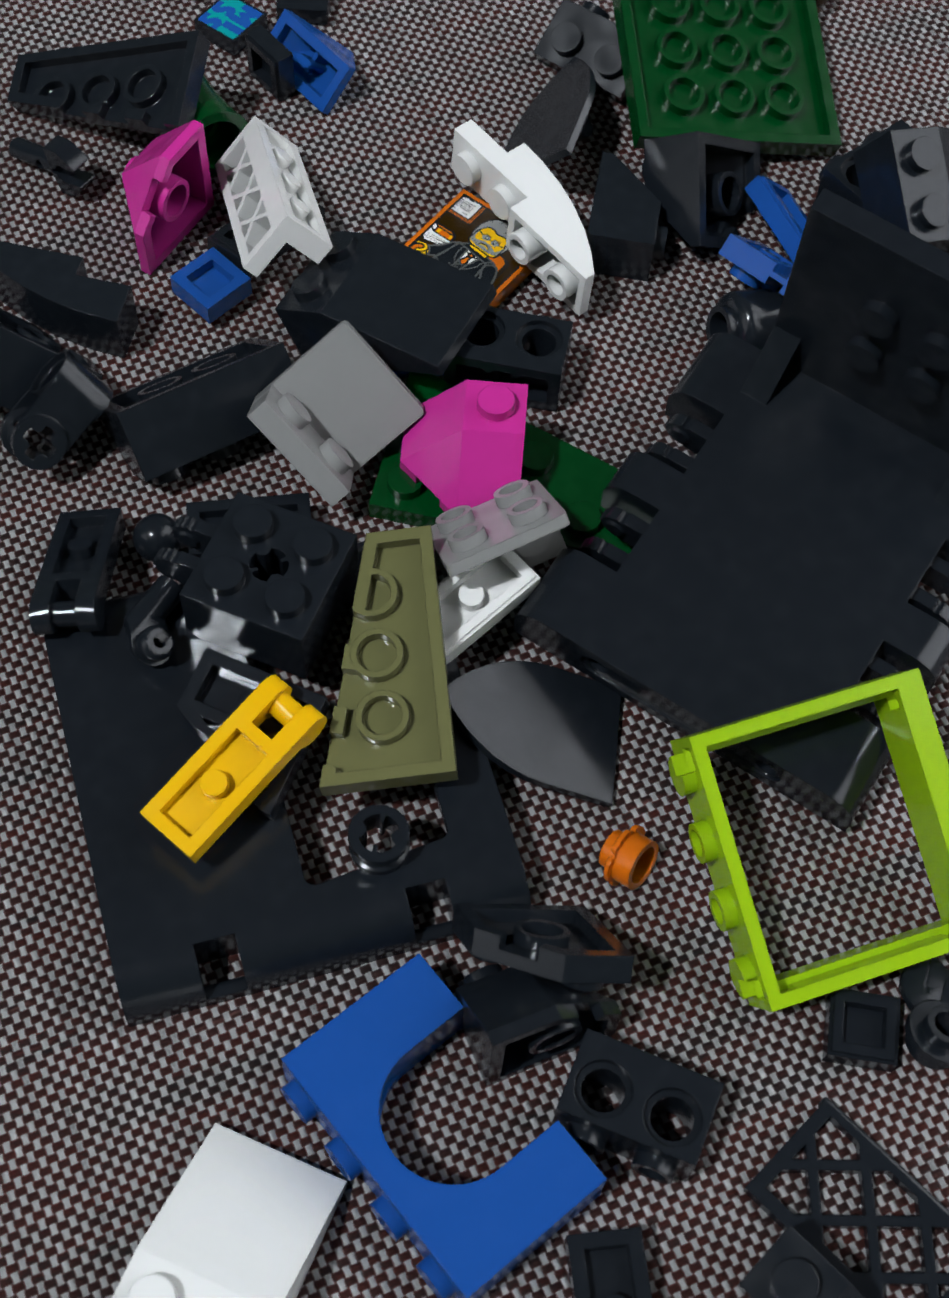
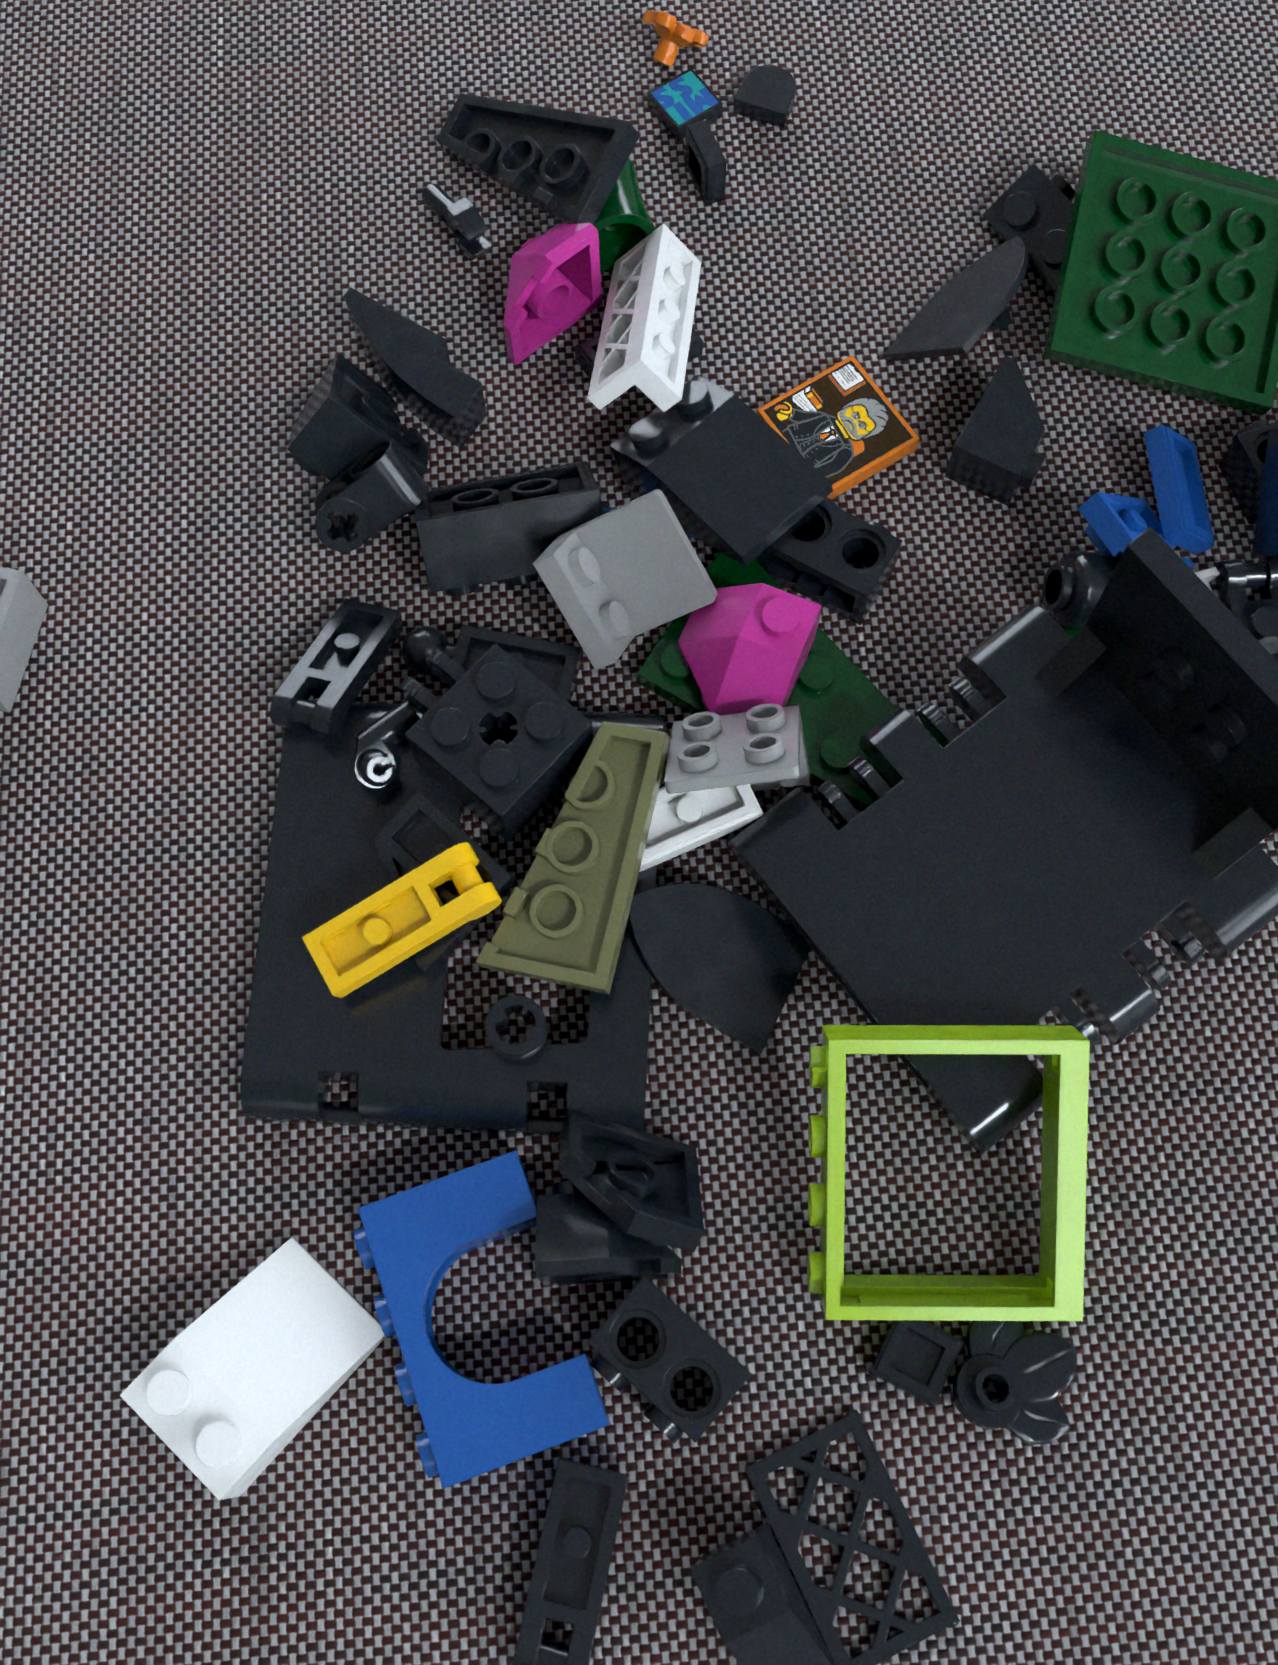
camera: 25 degrees right, 10 degrees up
(211, 285) = (562, 396): blue plate -> none
(319, 61) = (756, 167): blue slope -> none
(539, 214) = (912, 405): white slope -> none
(628, 857) = (754, 1114): orange plate -> none
(701, 183) = (1099, 419): black slope -> none

